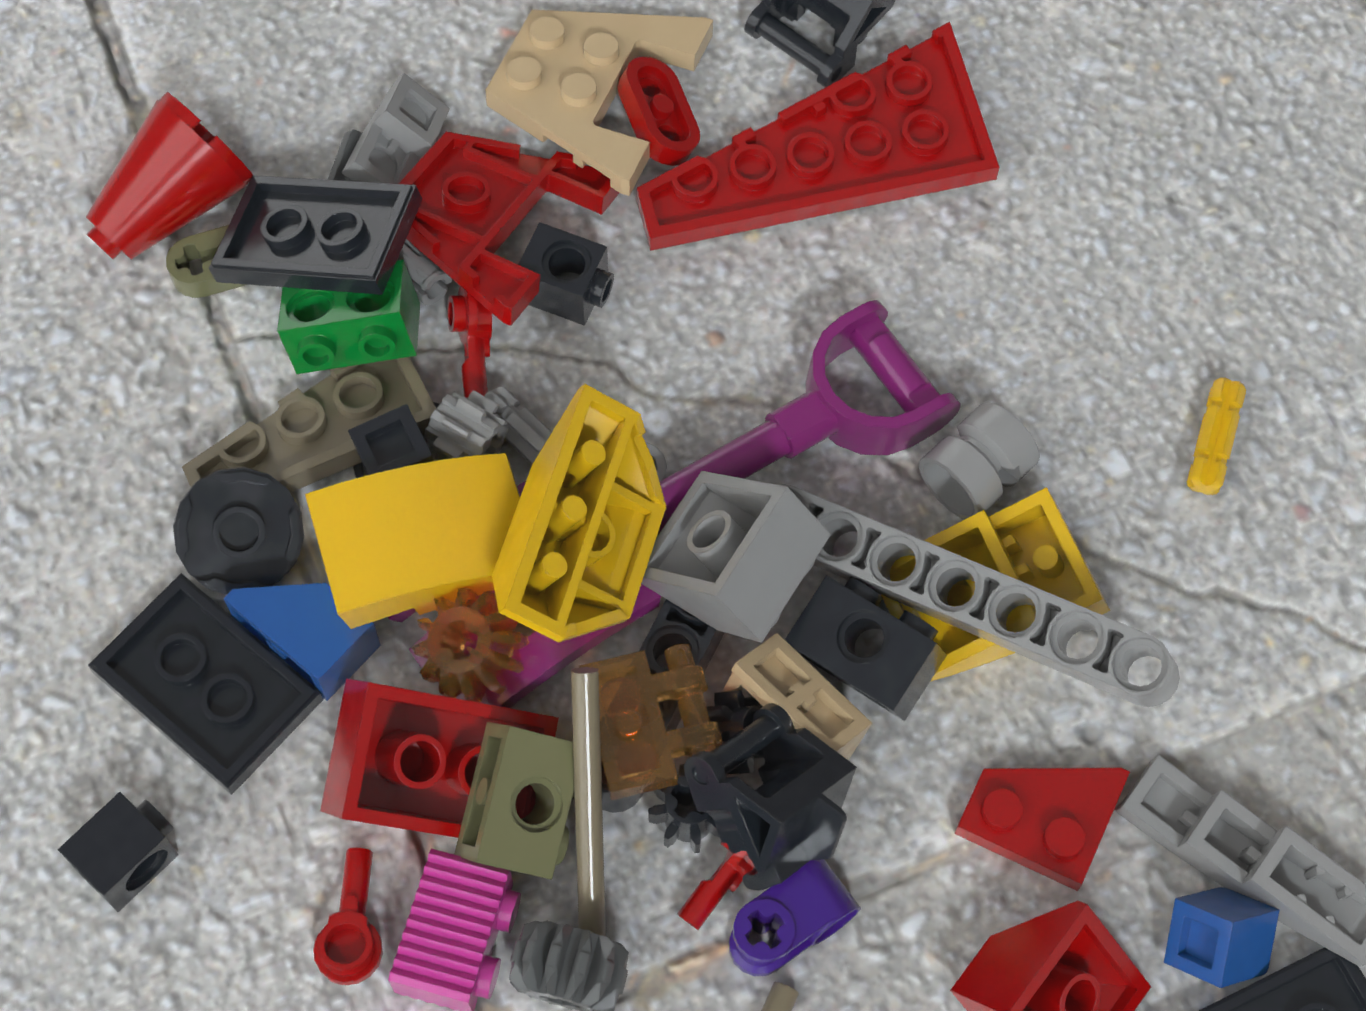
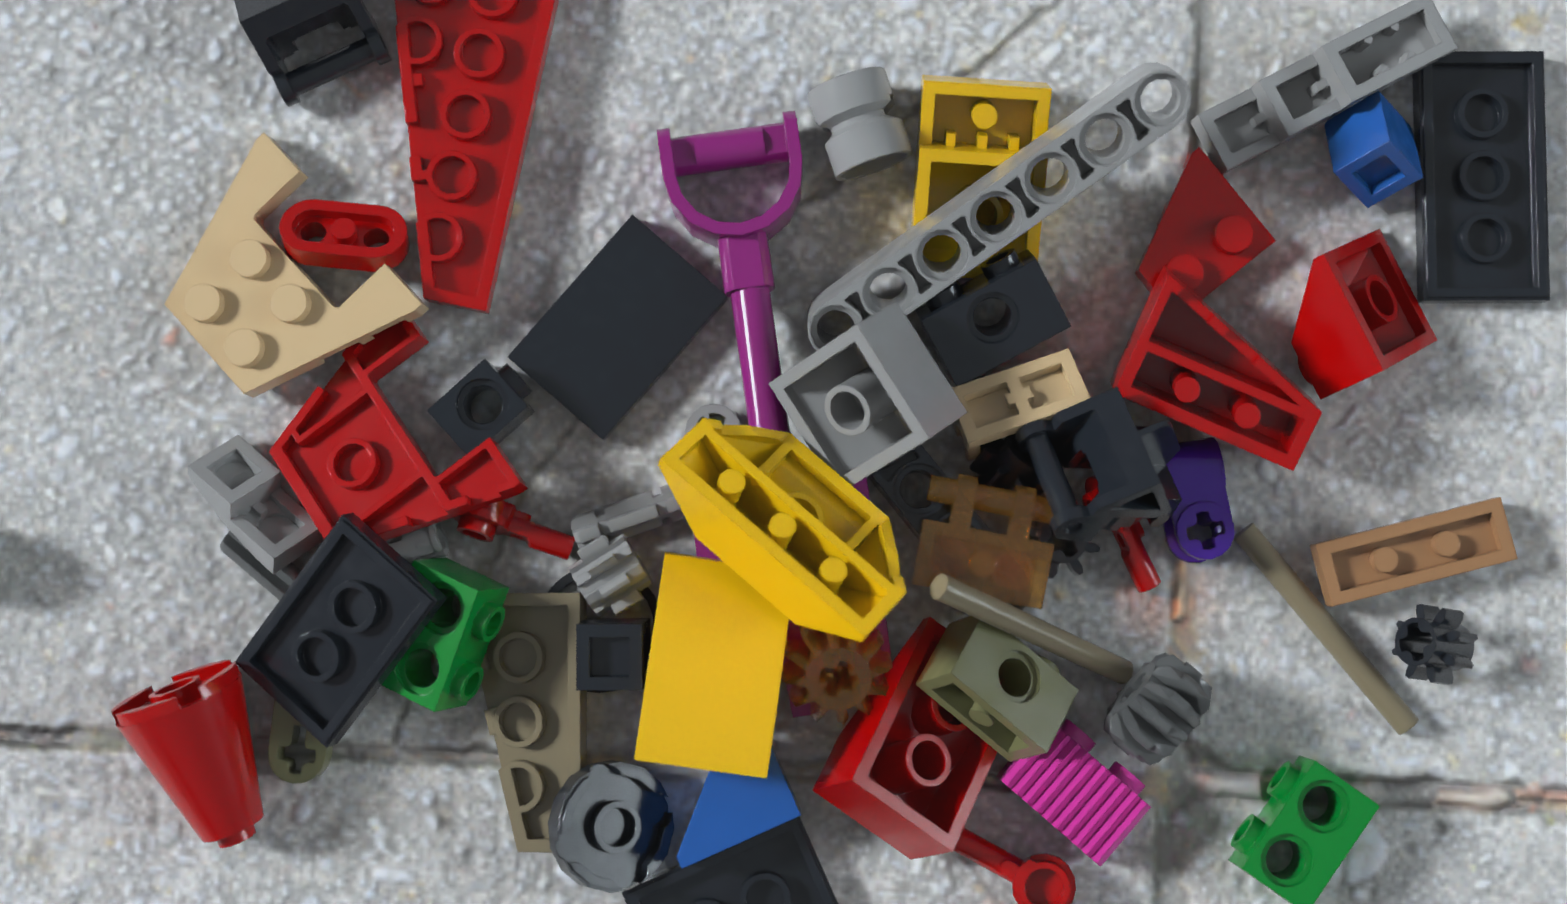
camera: 65 degrees left, 20 degrees up
(691, 354) = (618, 327): none -> black tile
(917, 868) = (1211, 378): none -> red wedge

